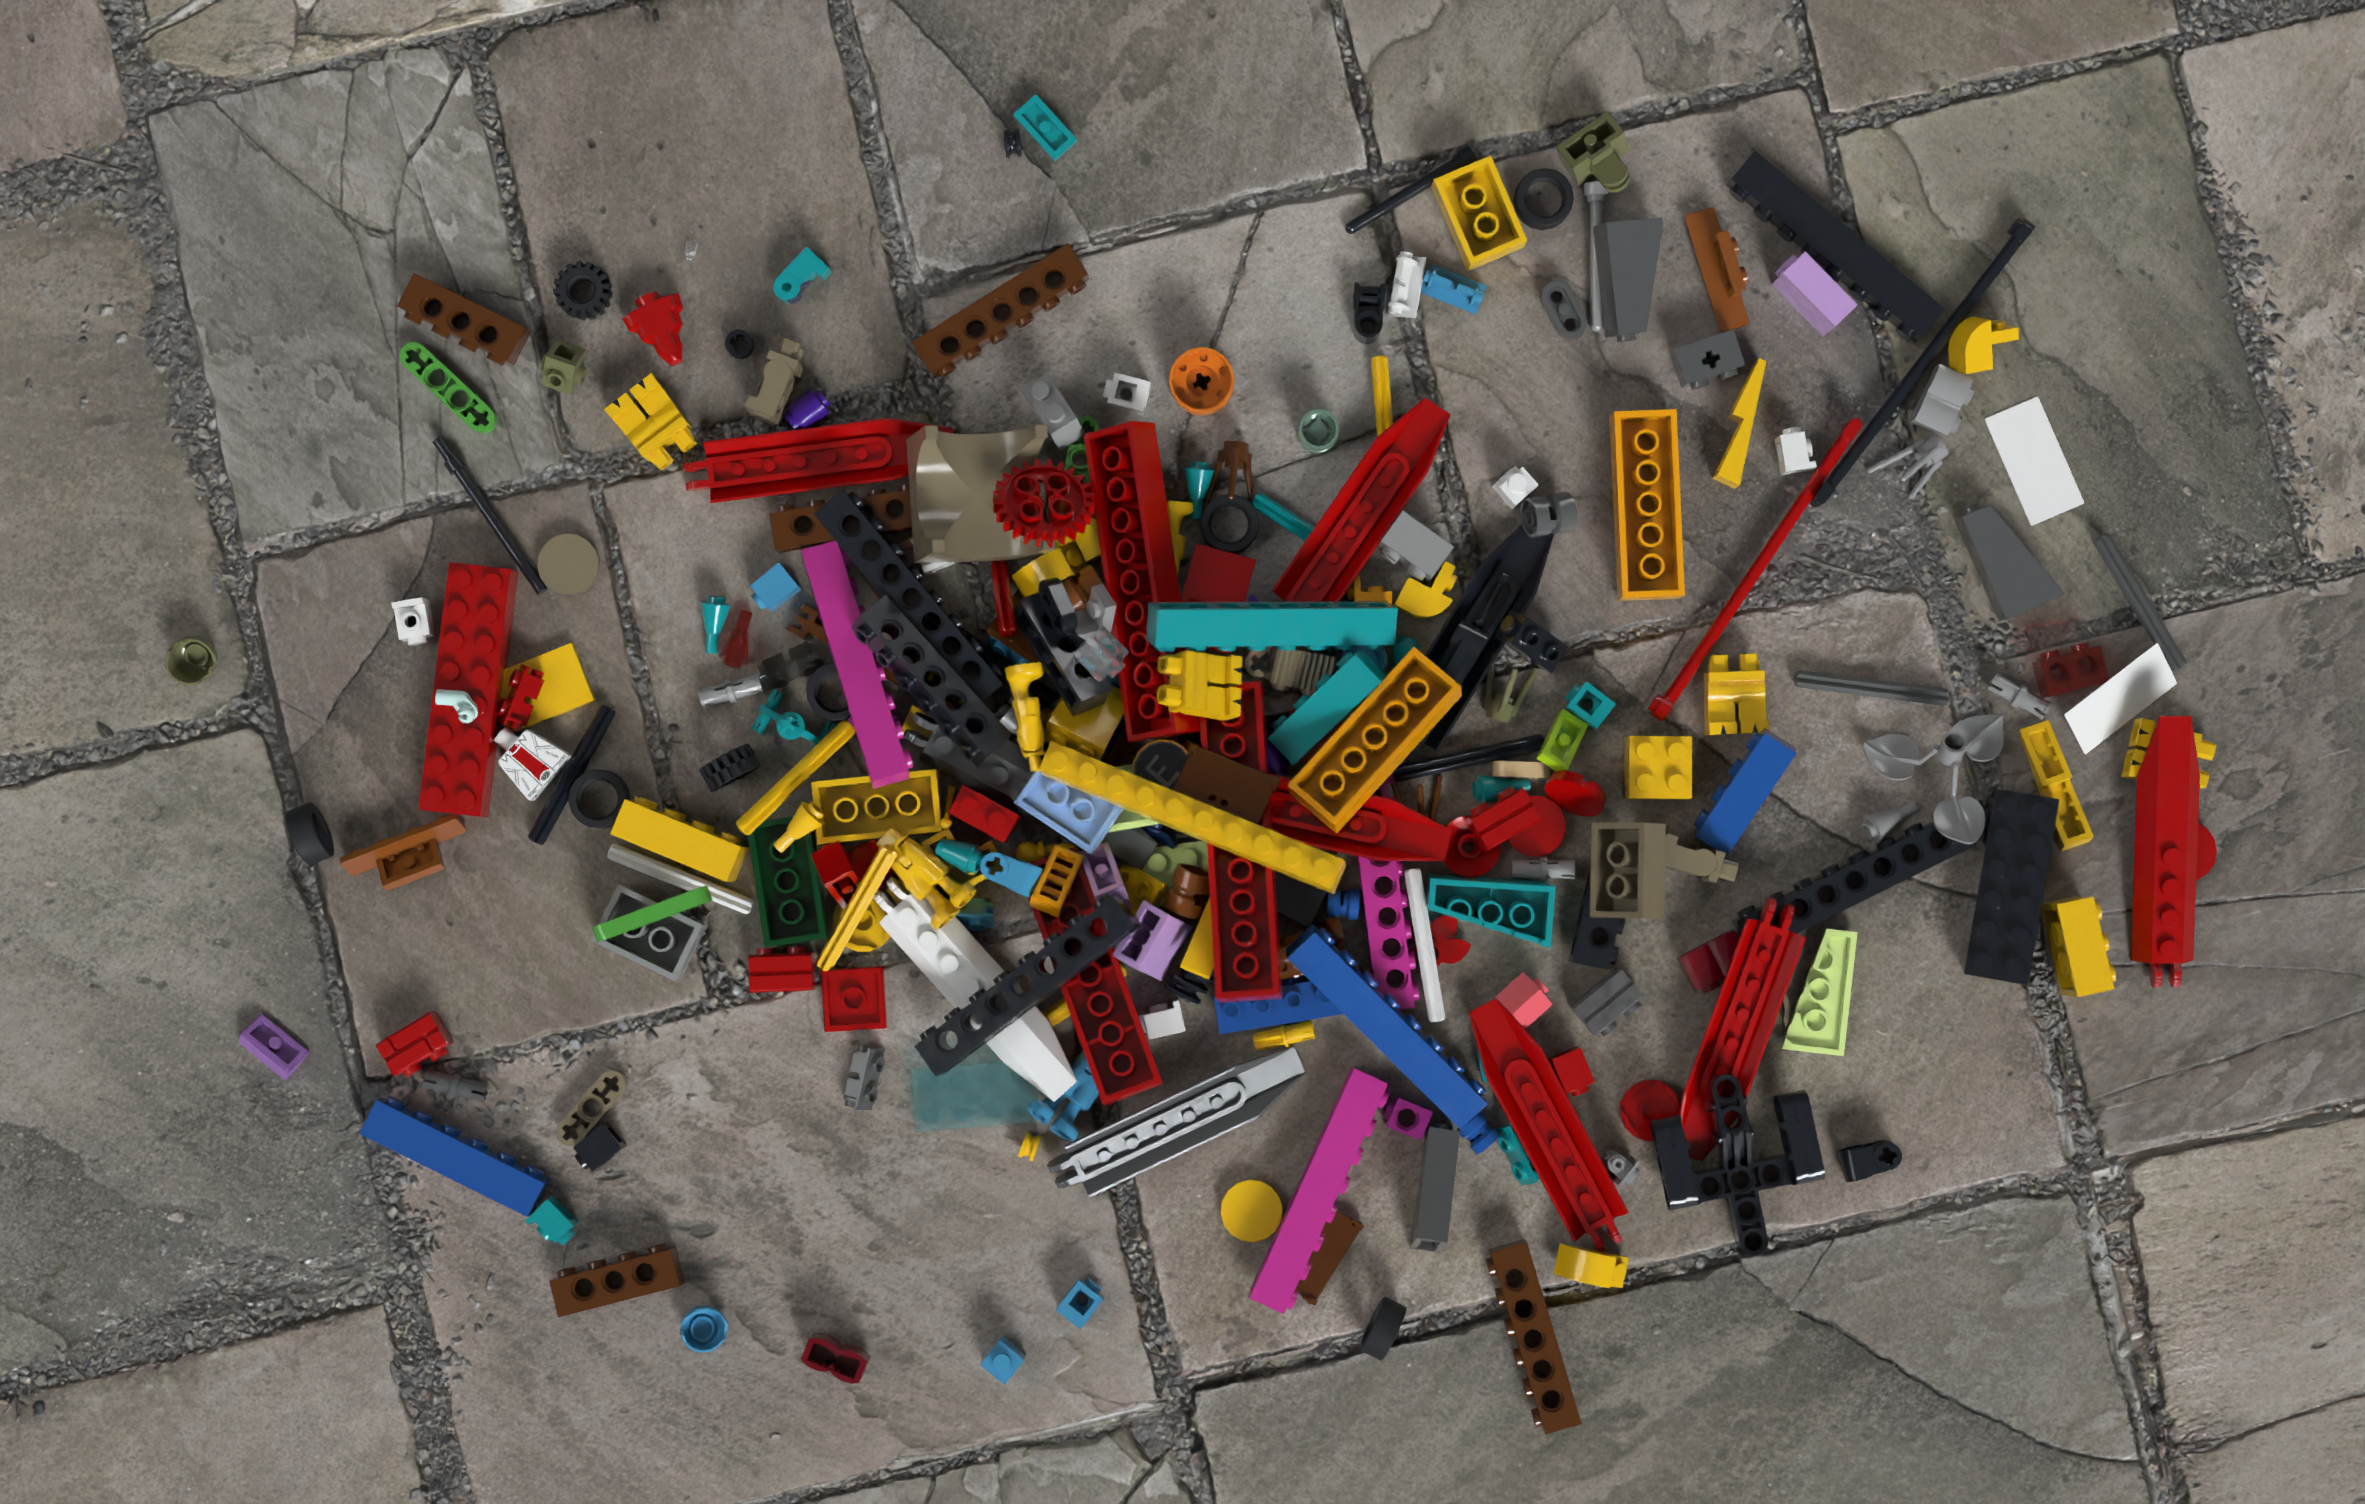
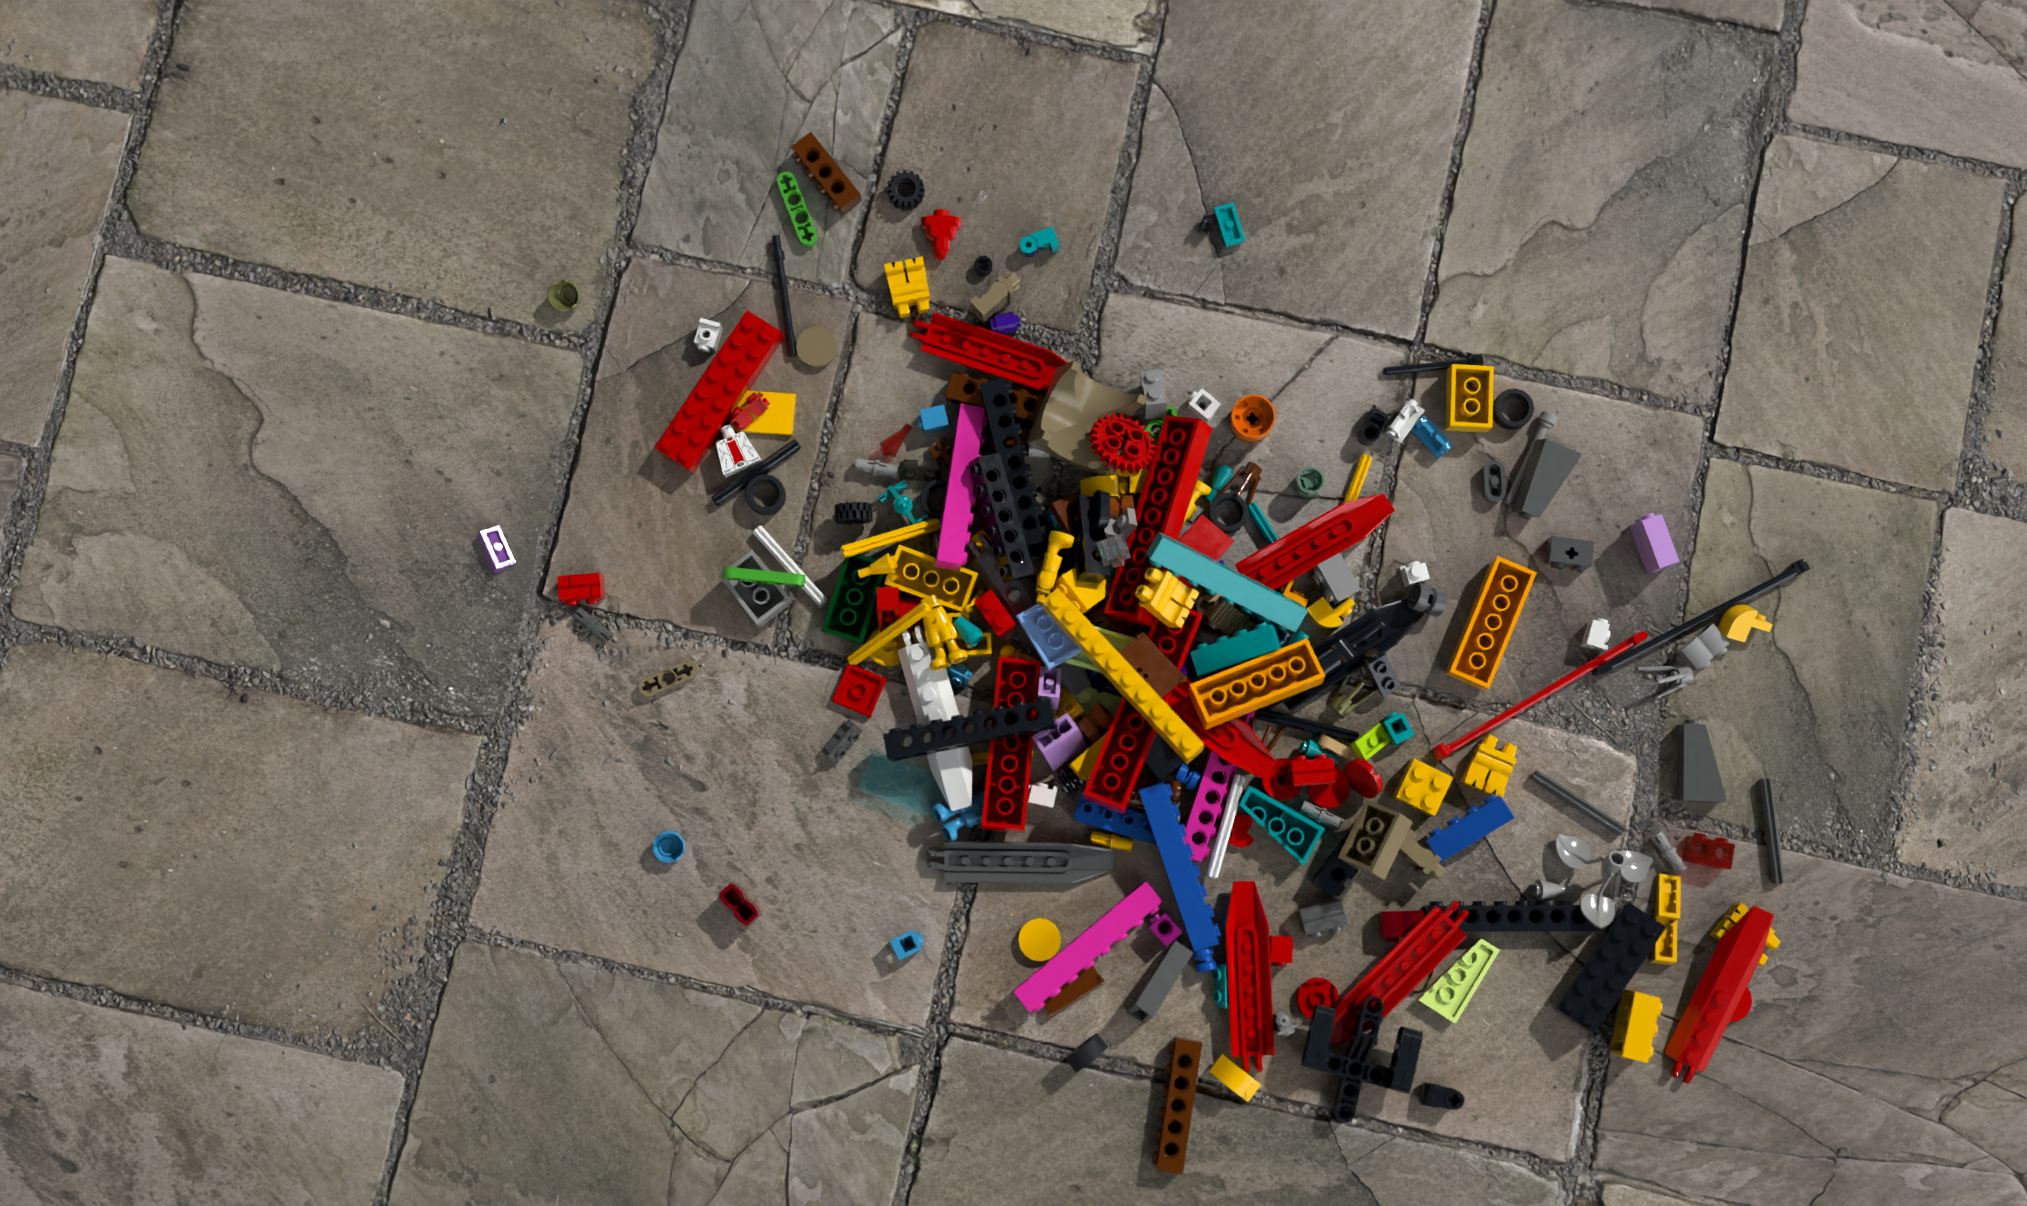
camera: 25 degrees right, 5 degrees down
(310, 833) = (582, 431): black tyre -> none
(406, 855) = (632, 472): dark orange bracket -> none
(455, 1156) = (571, 668): blue brick -> none
(460, 701) = (712, 393): light aqua arm -> none
(553, 1221) = (610, 736): teal brick -> none
(563, 367) = (872, 228): olive brick -> none
(571, 1300) = (597, 789): reddish brown brick -> none
(598, 1147) = (660, 704): black brick -> none
(679, 840) = (802, 542): yellow brick -> none
(714, 617) = (889, 418): teal cone -> none
(781, 971) = (823, 651): red brick -> none
(1003, 599) = (1068, 491): red axle -> none
(1003, 1360) = (842, 956): dark azure brick -> none
(1016, 874) = (996, 660): dark azure piece -> none
(1029, 1146) = (922, 832): yellow bush -> none
(1047, 904) = (1009, 685): light orange slope -> none
(1061, 262) = (1201, 308): reddish brown brick -> none
(1160, 762) = (1118, 633): black tile -> none
(1525, 999) = (1272, 890): coral brick -> none
(1597, 153) = (1559, 396): olive brick -> none
(1719, 268) = (1602, 501): dark orange bracket -> none
(1743, 412) = (1555, 623): yellow slope -> none
(1835, 248) = (1687, 537): black brick -> none
(2034, 461) = (1743, 712): white sticker -> none
(2120, 698) = (1732, 884): white sticker -> none

